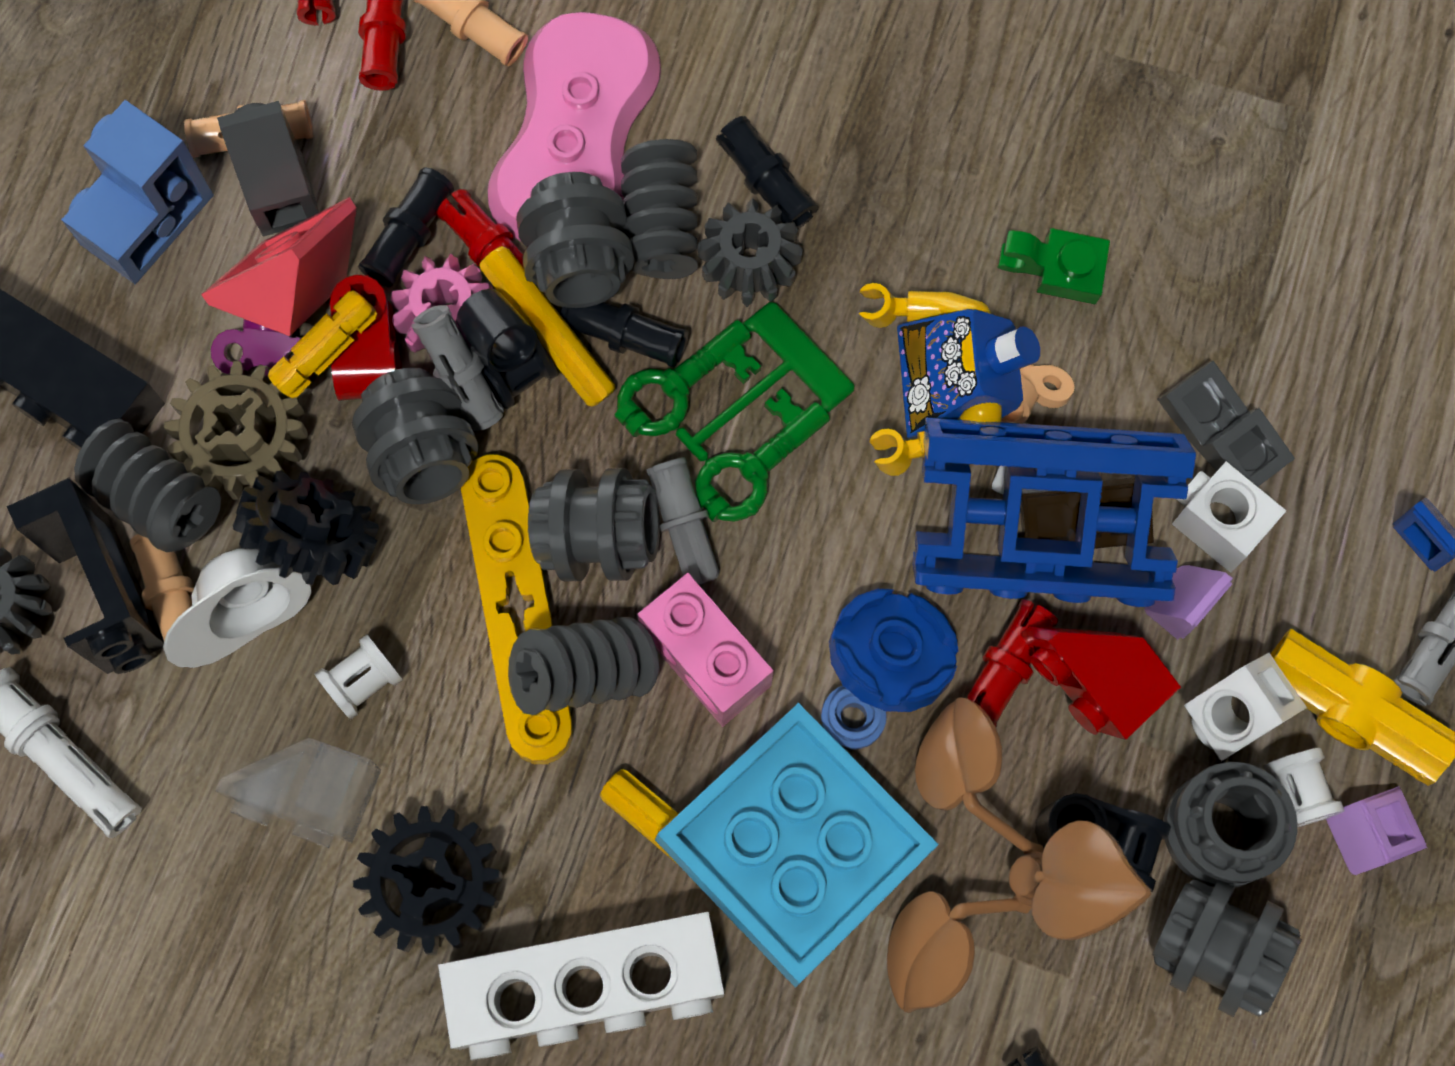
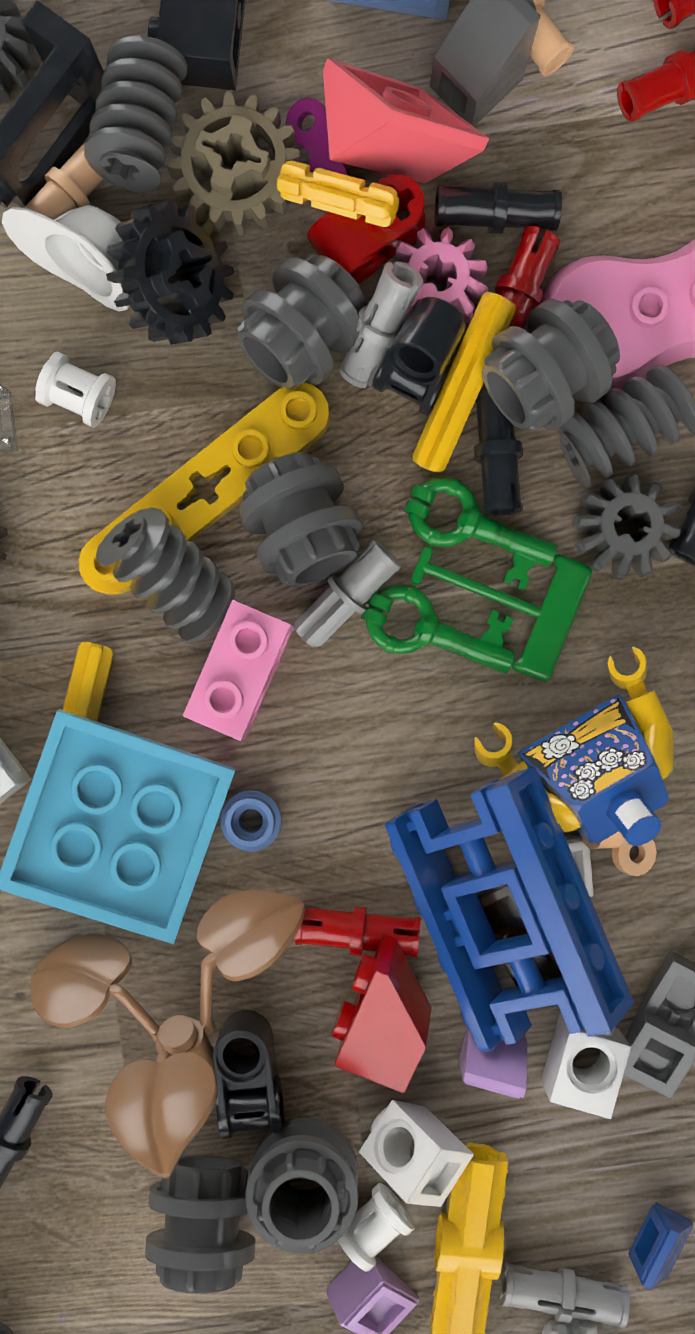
camera: 70 degrees right, 15 degrees up
(893, 650) = (321, 829): blue tile -> none

